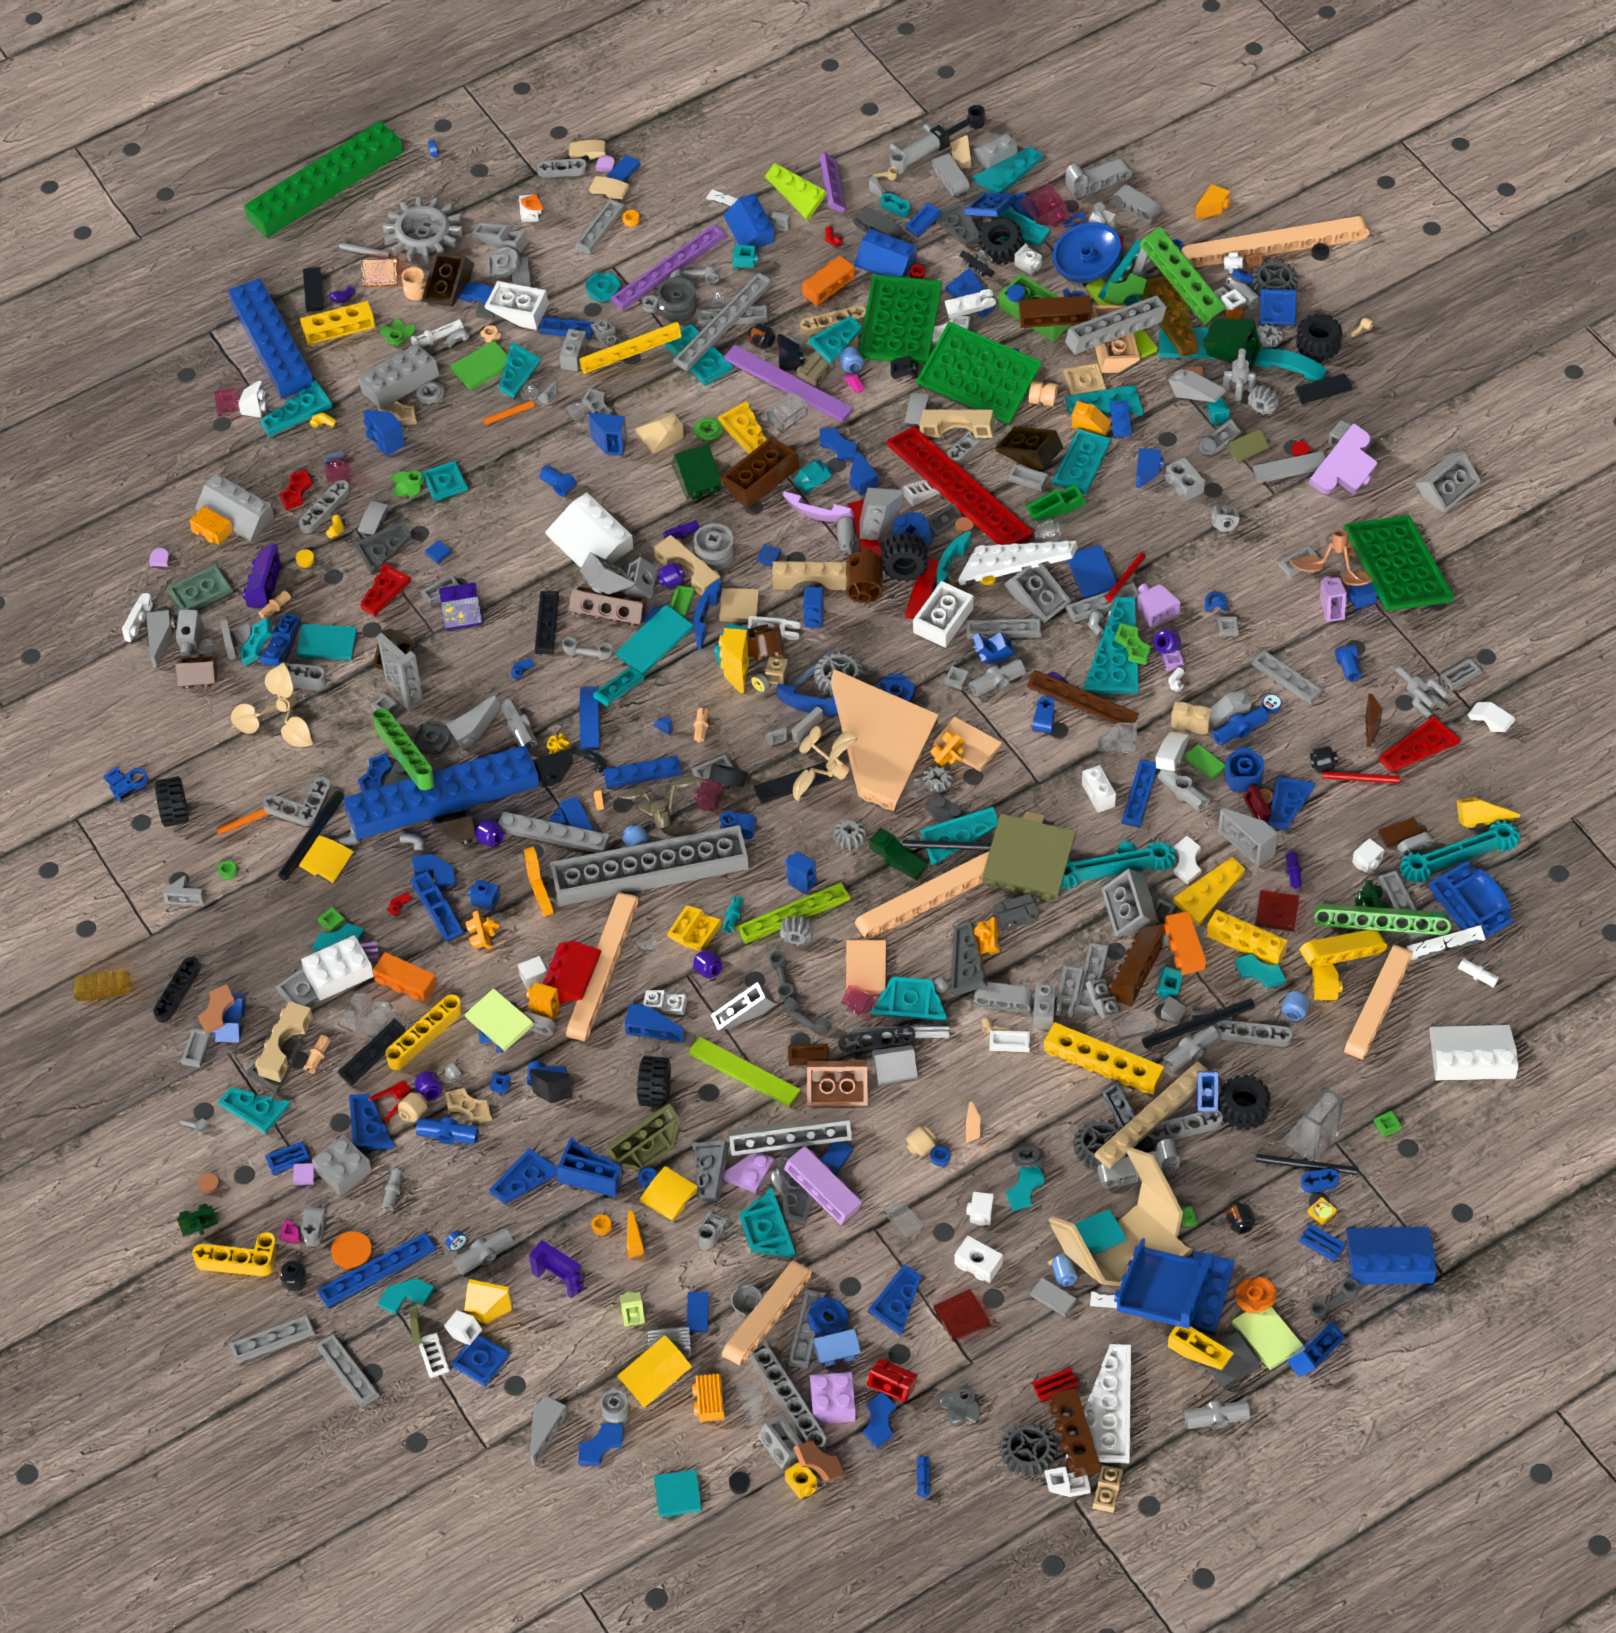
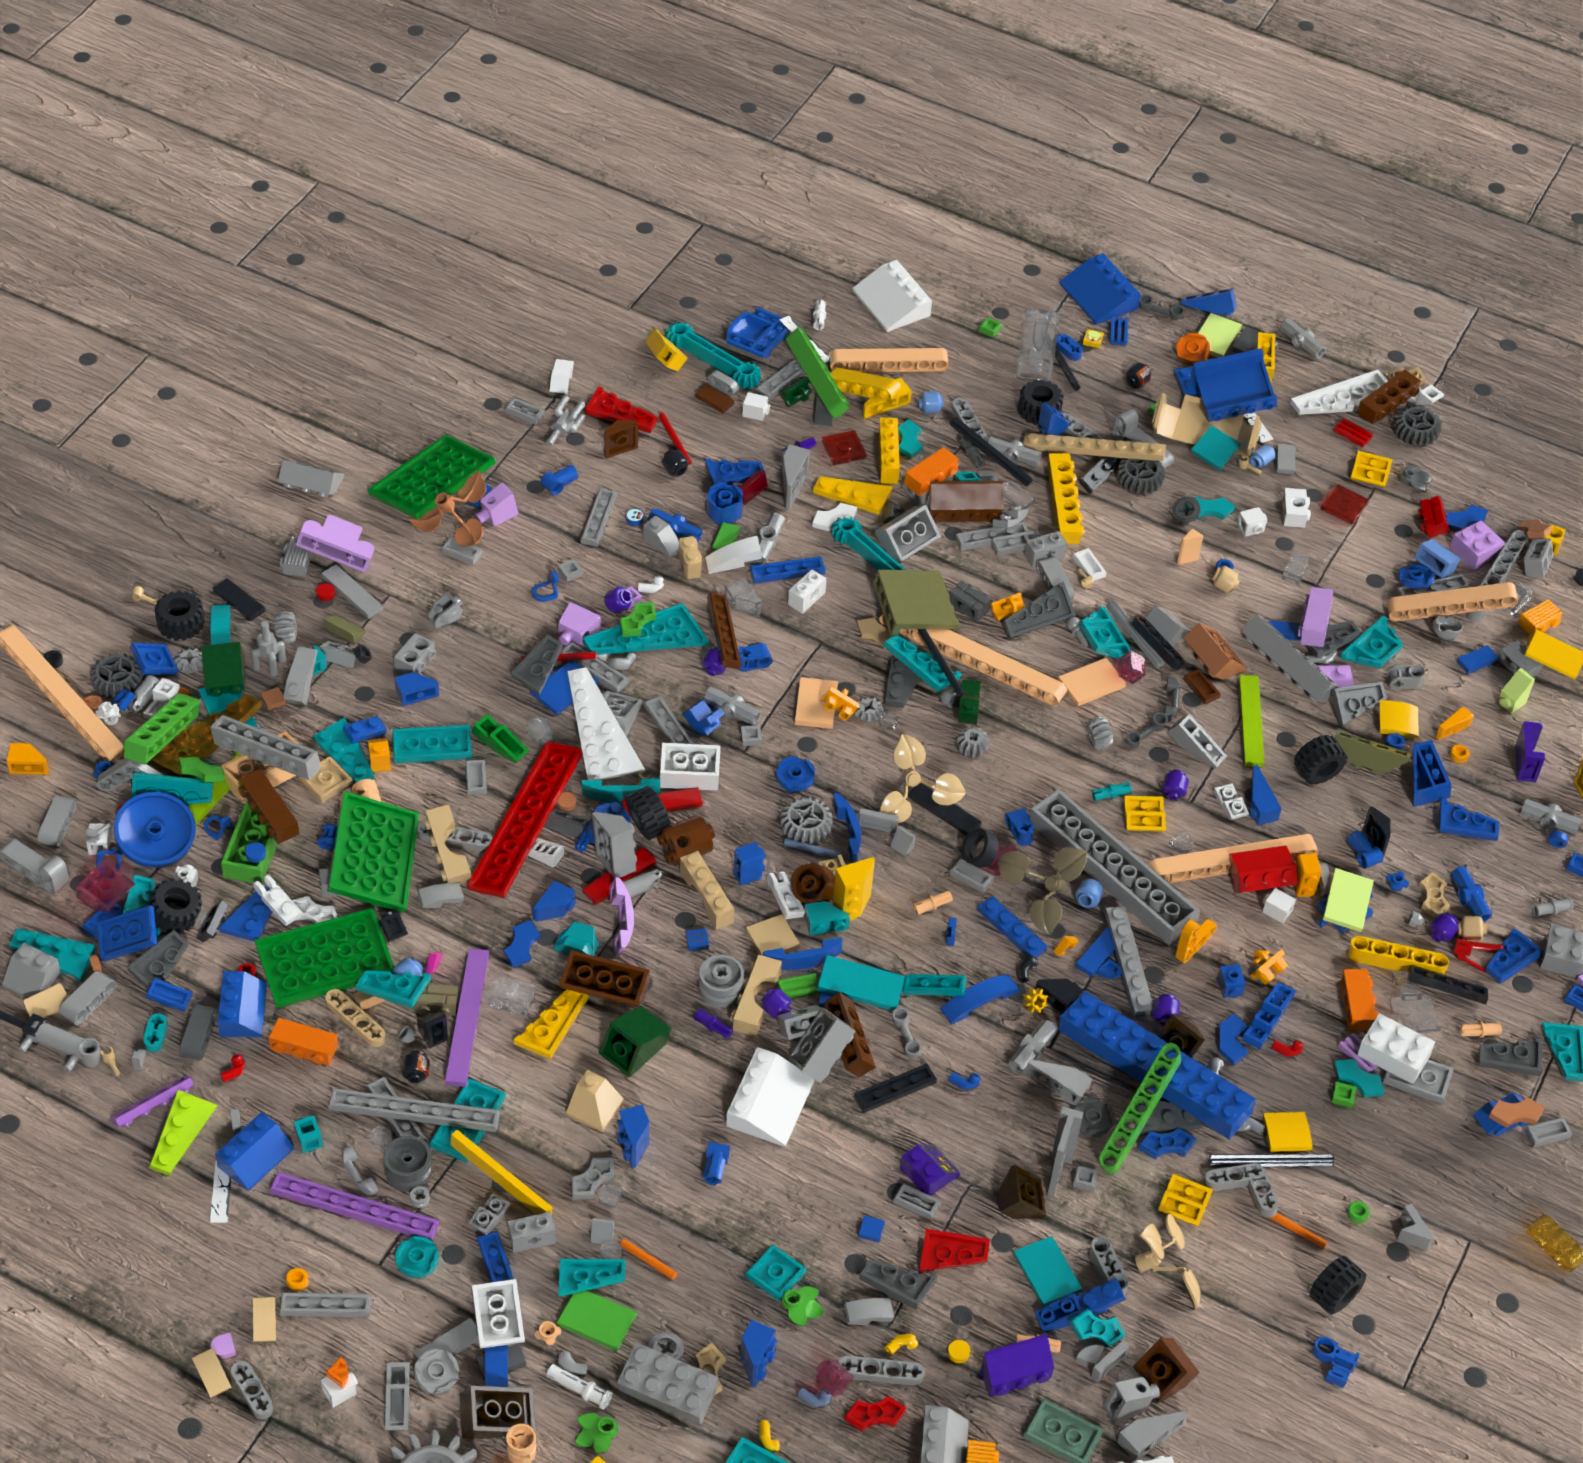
camera: 125 degrees left, 5 degrees down
(174, 988) = (1507, 1178): black beam -> none
(293, 1021) = (1474, 1052): tan arch -> none
(319, 759) = (1185, 1200): none -> yellow slope
(624, 169) = (225, 1322): blue tile -> none
(705, 424) = (574, 1056): bright green gear -> none
(801, 872) = (1042, 751): blue brick -> none
(804, 907) = (1076, 753): lime tile -> none
(888, 735) = (858, 753): light nougat slope -> none
(896, 1300) = (1369, 544): blue wing -> none
(923, 1476) = (1486, 476): blue axle -> none
(977, 186) = (95, 963): none -> nougat tile
(994, 1370) = (1371, 469): none -> yellow slope
(1031, 446) = (440, 782): dark brown slope -> none
(1119, 553) = (538, 664): none -> dark grey wing
(1126, 847) = (854, 552): teal tile -> none

